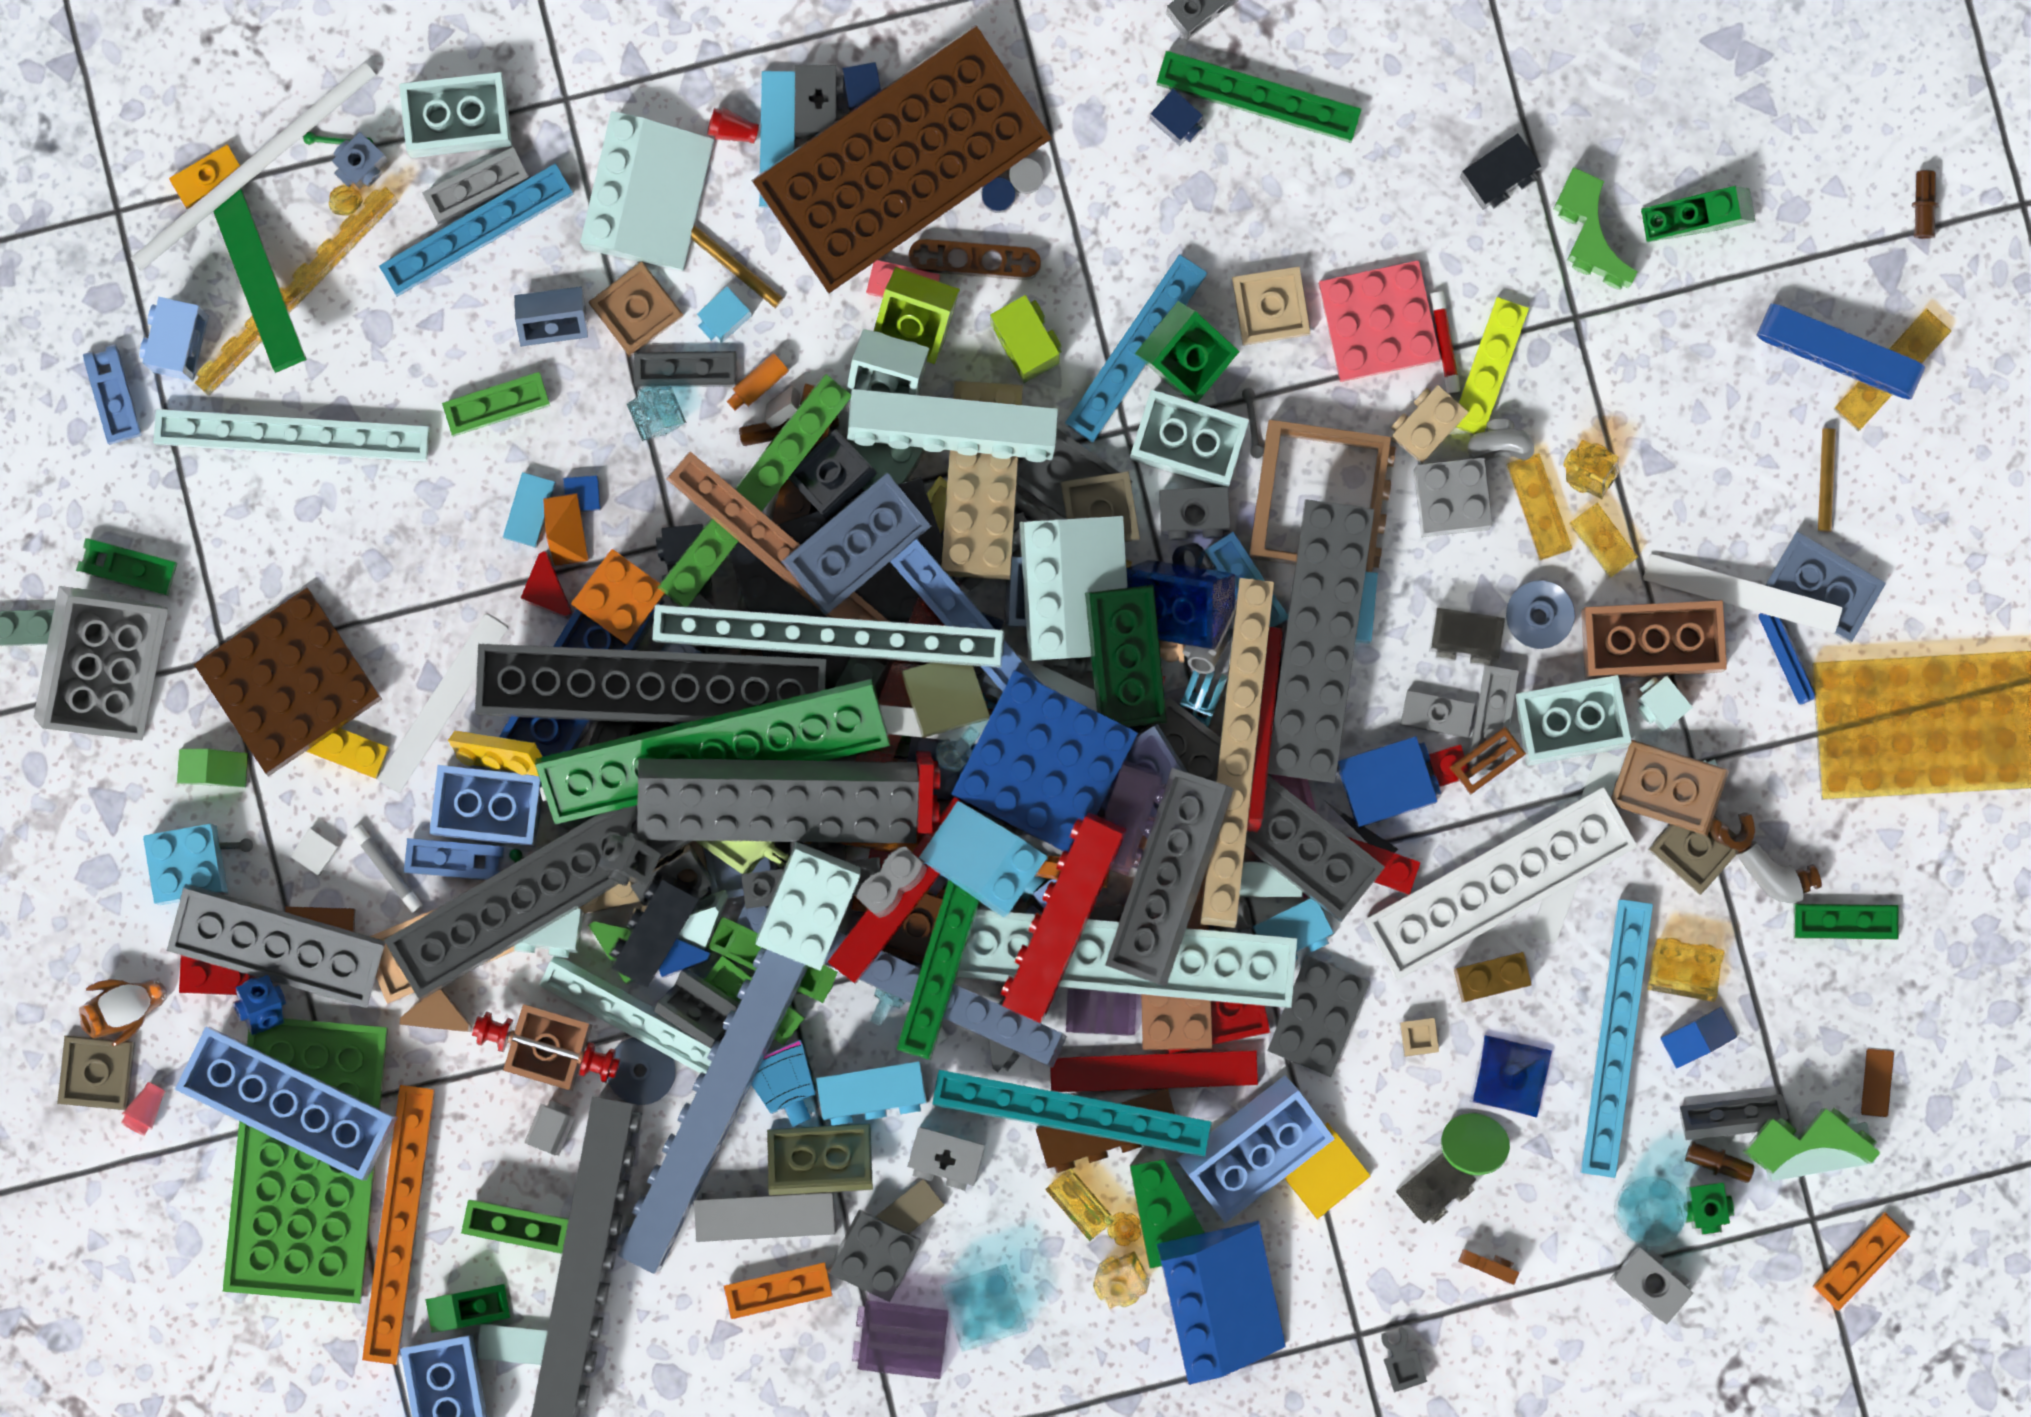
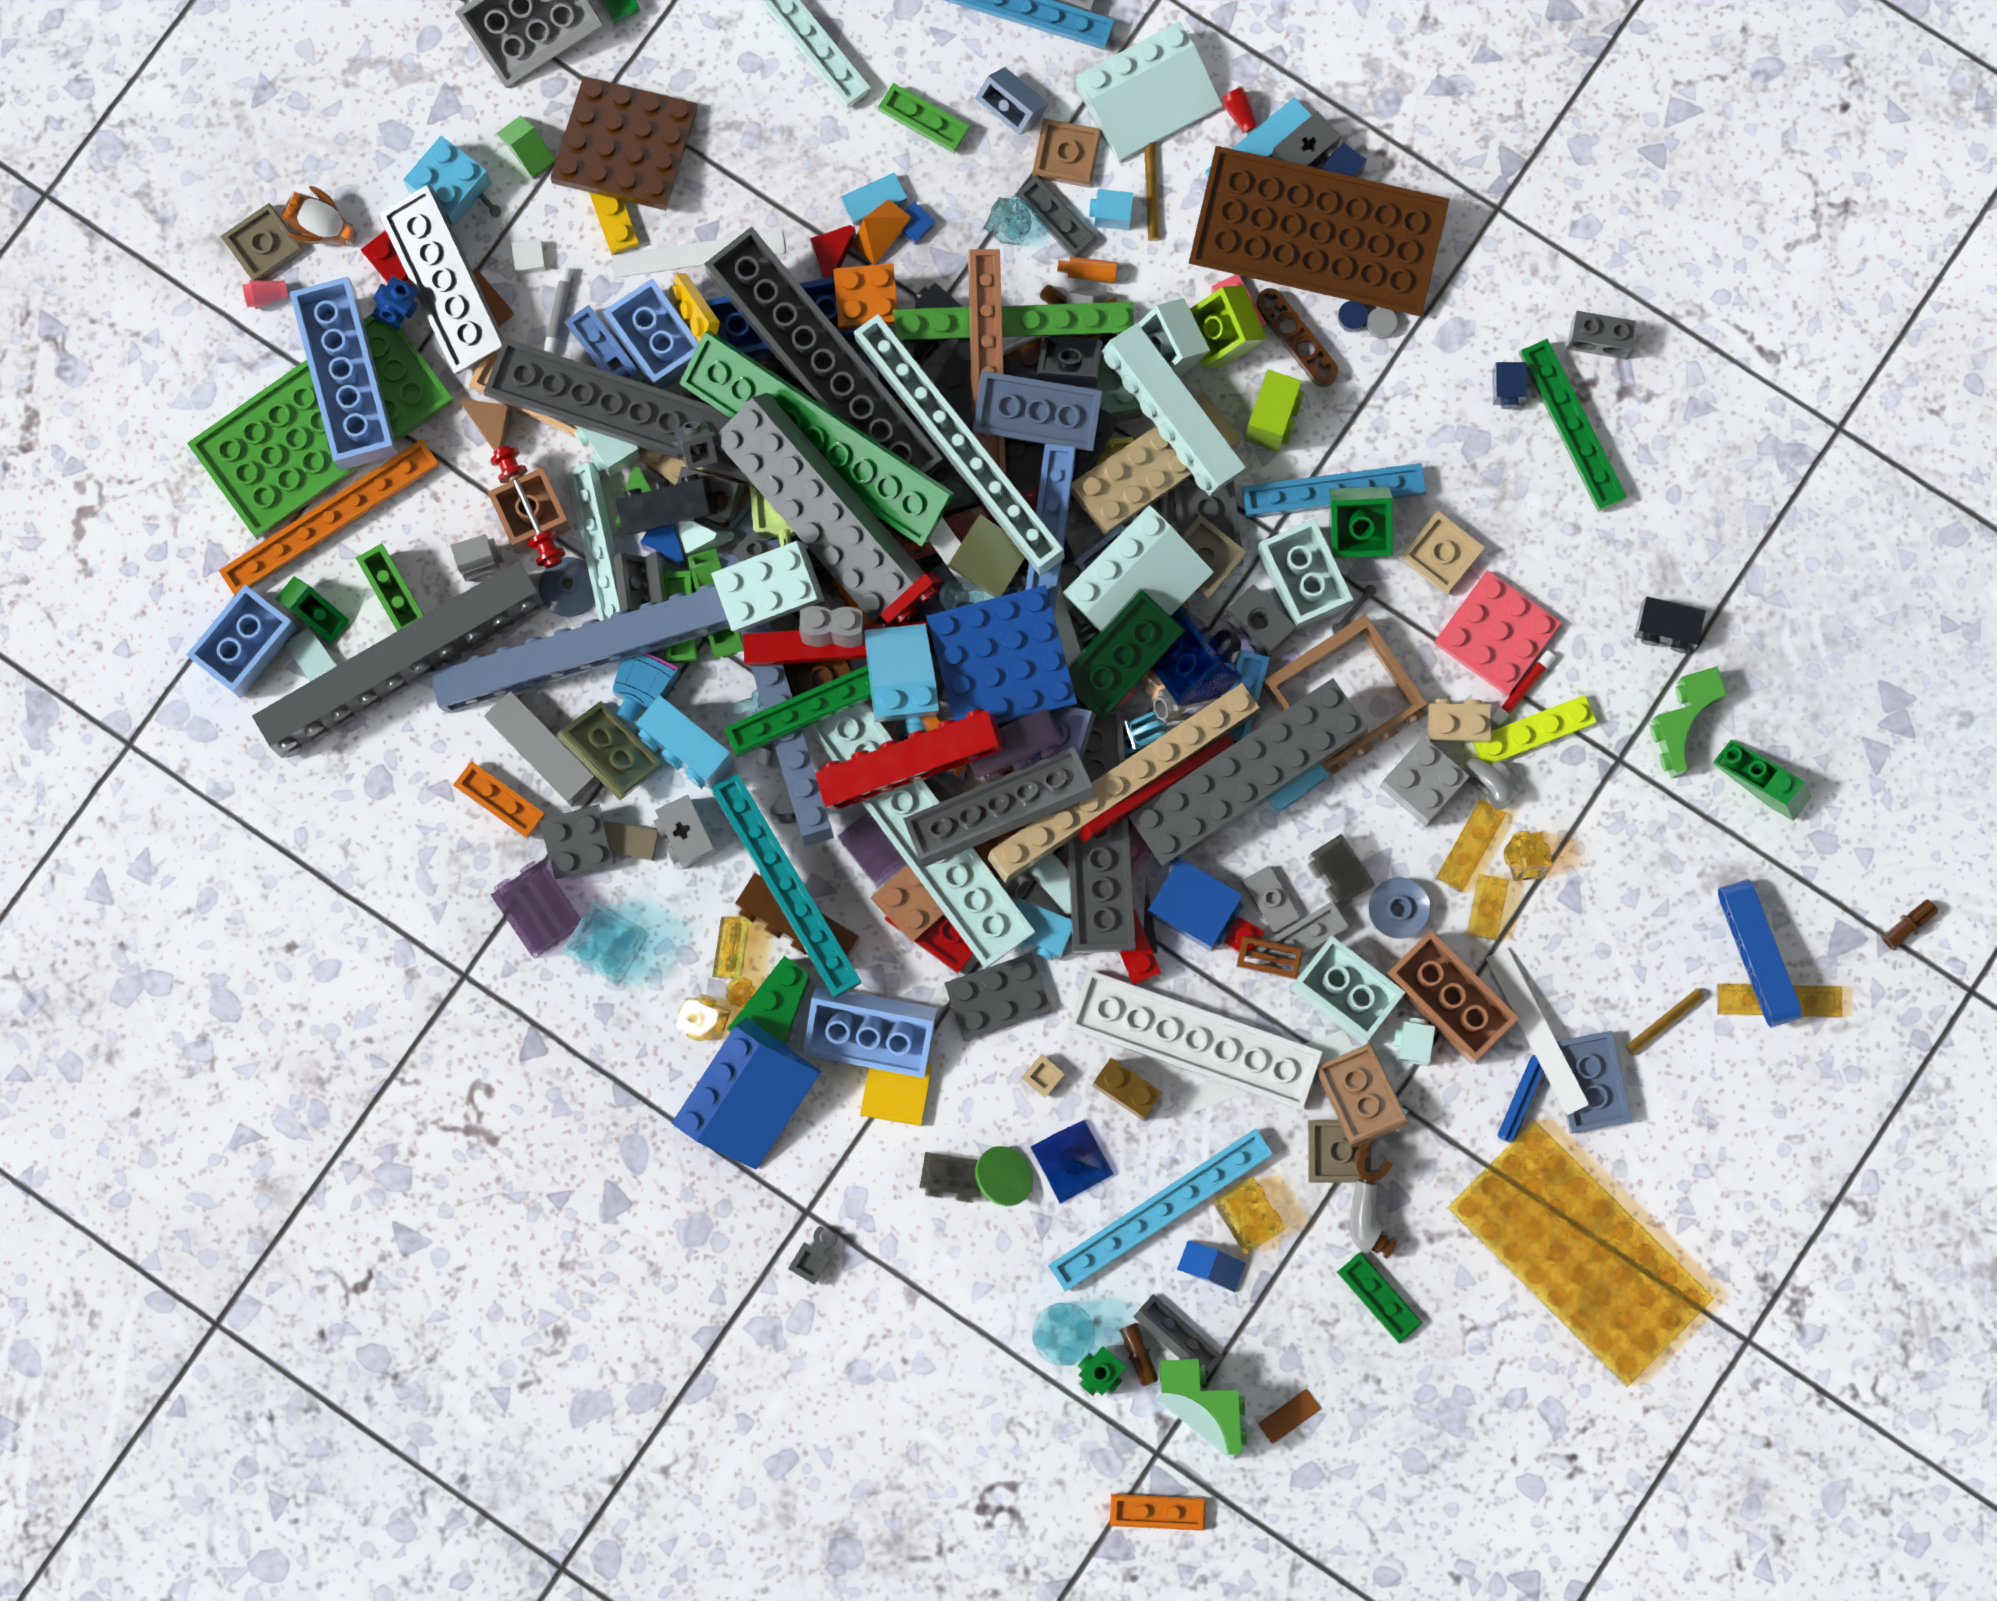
camera: 45 degrees right, 5 degrees down
(1154, 1071) = (864, 920): red tile -> none
(1498, 1268) = (934, 1266): dark orange plate -> none
(1632, 1278) = (1010, 1361): light grey brick -> none

